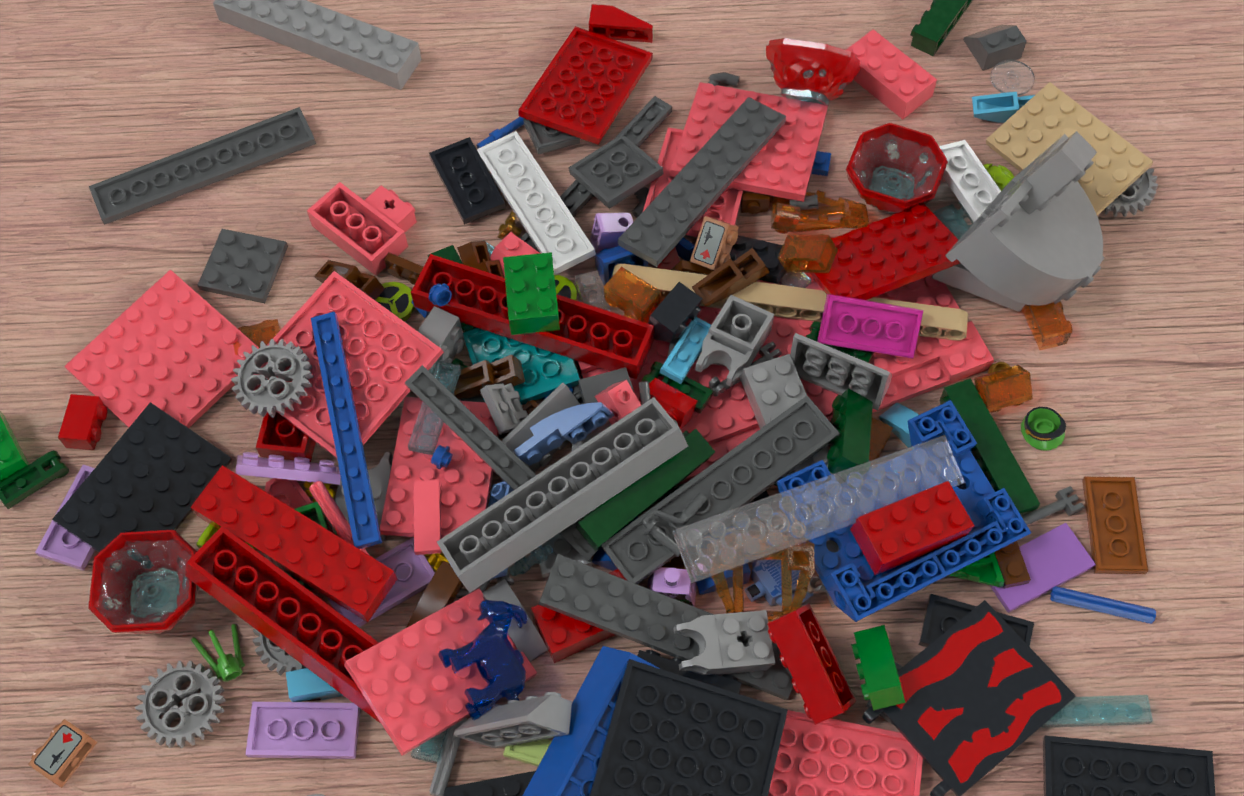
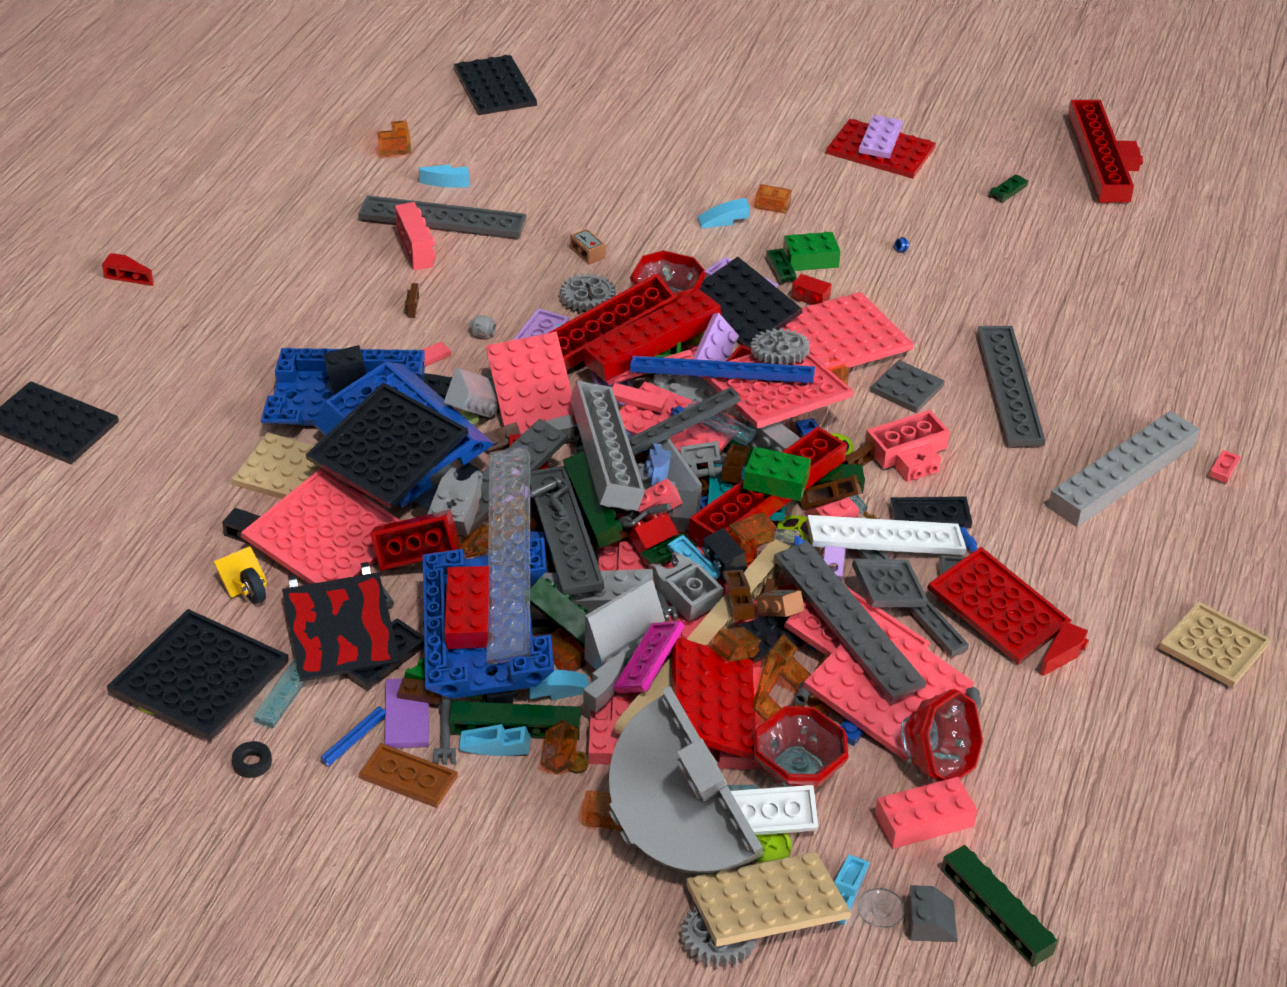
camera: 110 degrees right, 20 degrees down
(367, 283) = (856, 429): reddish brown slope -> none
(440, 294) = (803, 433): blue plate -> none
(494, 658) = (521, 401): clear blue animal -> none
(546, 671) = (500, 436): none -> reddish brown plate
(877, 668) = (391, 579): green brick -> none
(911, 367) = (603, 681): none -> light grey slope
(1028, 456) = (496, 741): none -> medium azure slope
(1043, 428) = (513, 766): bright green piece -> none
(1209, 681) = (256, 769): none -> black tyre

